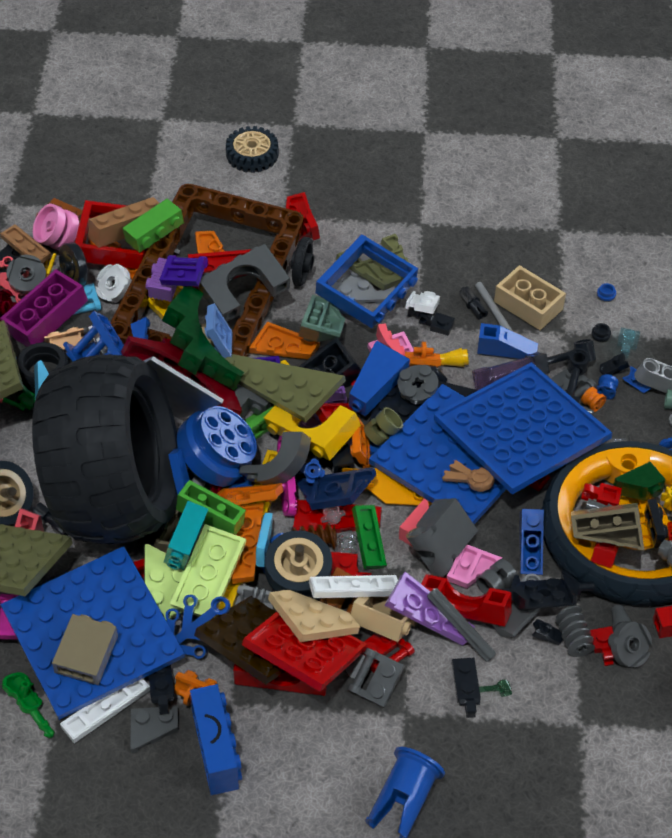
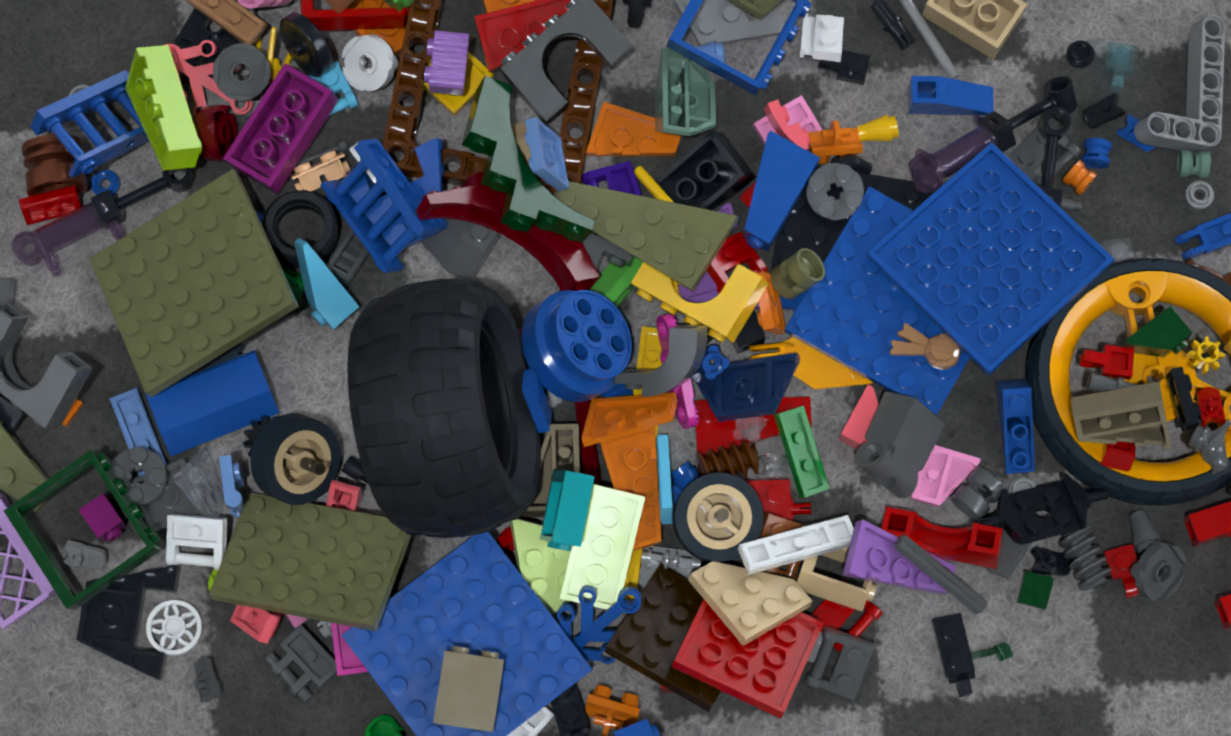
camera: 10 degrees left, 25 degrees up
(183, 271) = (478, 67): dark purple plate -> none
(183, 393) = (500, 282): light grey piece -> none
(221, 512) = (590, 457): bright green brick -> none
(534, 649) = (1035, 590): none -> dark green slope

